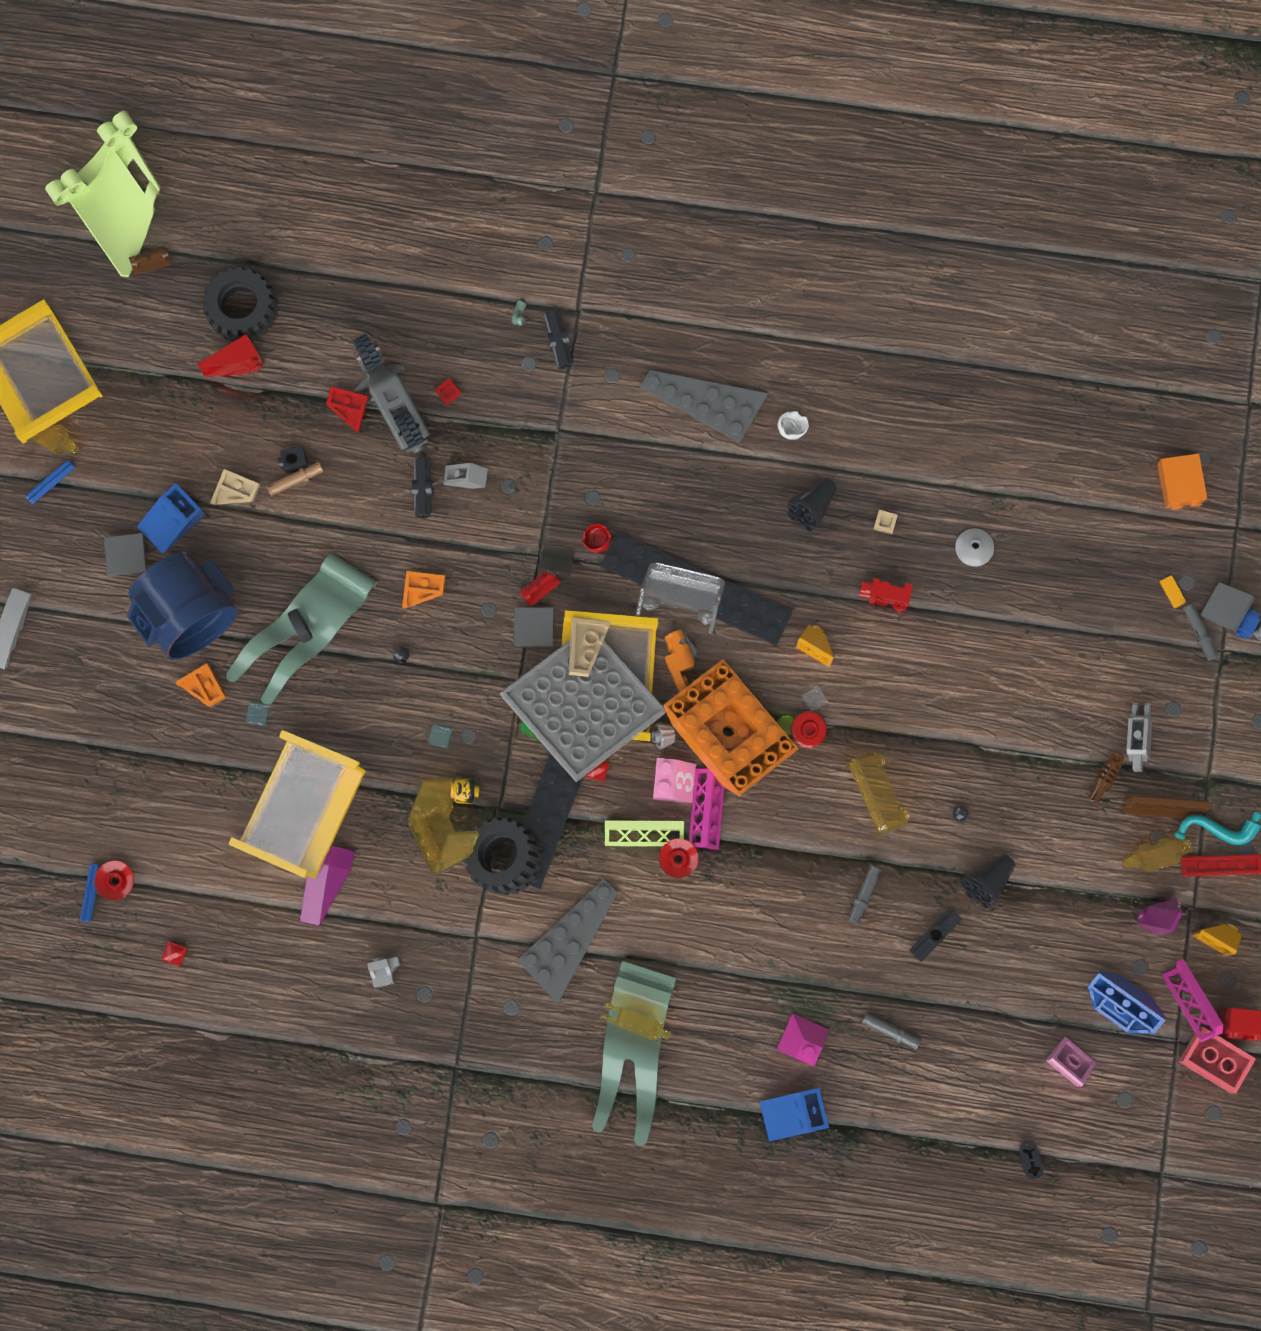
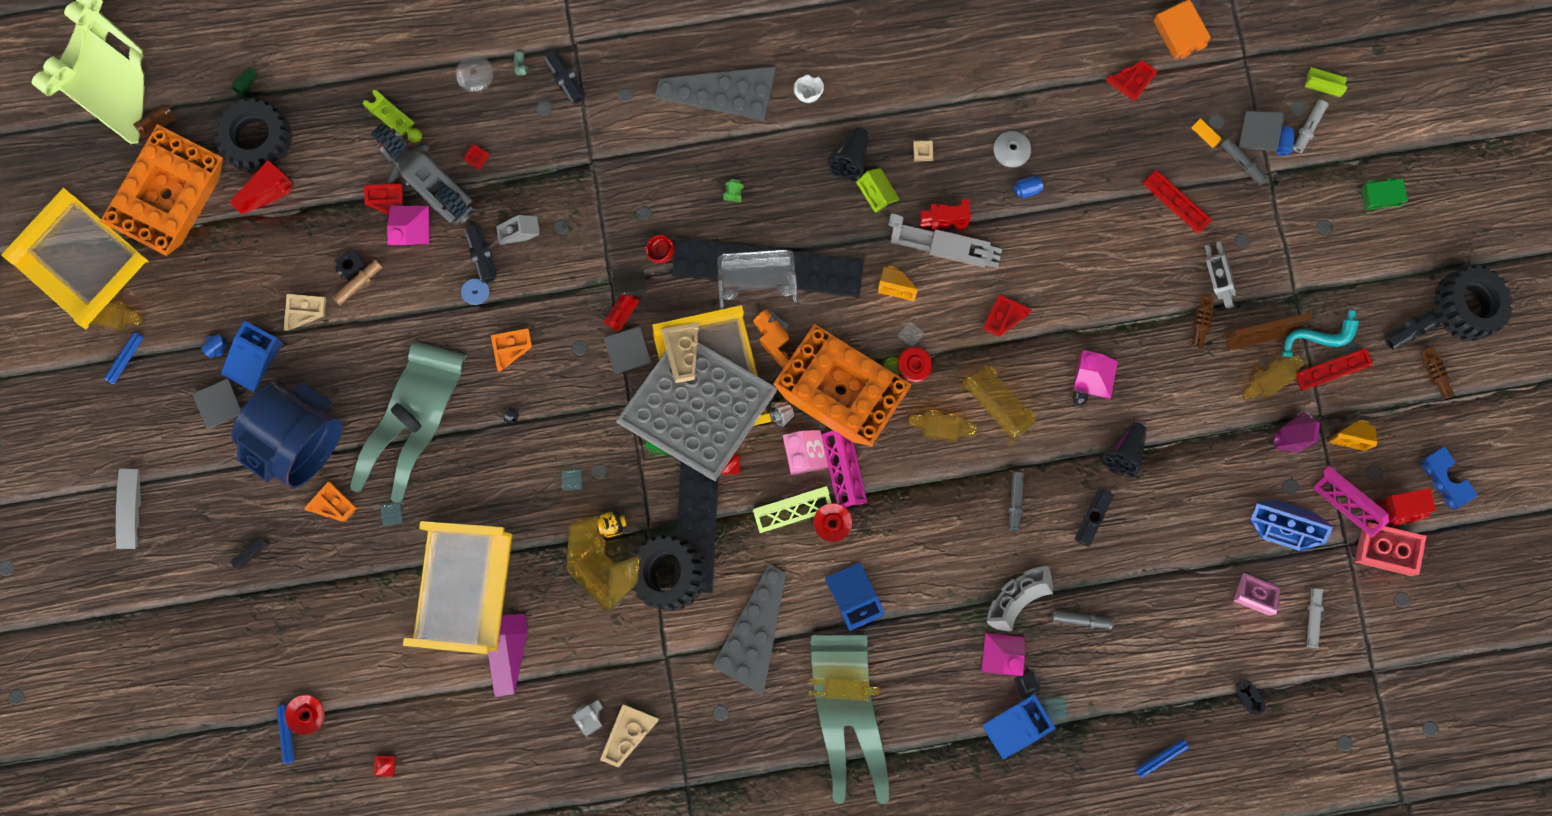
camera: 20 degrees left, 0 degrees up
(111, 708) = (249, 553): none -> black tile
(139, 497) = (214, 346): none -> blue piece
(144, 306) = (164, 165): none -> orange slope
(247, 249) = (244, 82): none -> dark green cone
(361, 438) = (408, 225): none -> dark pink slope
(380, 328) = (393, 117): none -> lime plate
(404, 523) = (475, 292): none -> medium blue piece
(414, 998) = (627, 734): none -> tan wing
(474, 317) = (477, 81): none -> clear dish
(676, 937) = (855, 596): none -> blue slope
(686, 503) = (733, 191): none -> bright green brick
(816, 799) = (941, 426): none -> clear yellow hinge
(816, 1076) = (1027, 684): none -> black tile
(828, 546) = (877, 189): none -> lime panel
(836, 986) = (1017, 595): none -> light grey brick
(836, 1109) = (1056, 708): none -> clear light blue tile
(876, 620) = (944, 244): none -> light grey hinge
(912, 710) = (1005, 316): none -> red wing
(924, 1190) = (1162, 758): none -> blue axle
(977, 590) = (1028, 187): none -> blue brick
(983, 796) = (1095, 374): none -> dark pink slope
(1117, 516) = (1133, 79): none -> red wing
(1120, 650) = (1177, 201): none -> red tile
(1120, 1102) = (1314, 617): none -> light grey pin

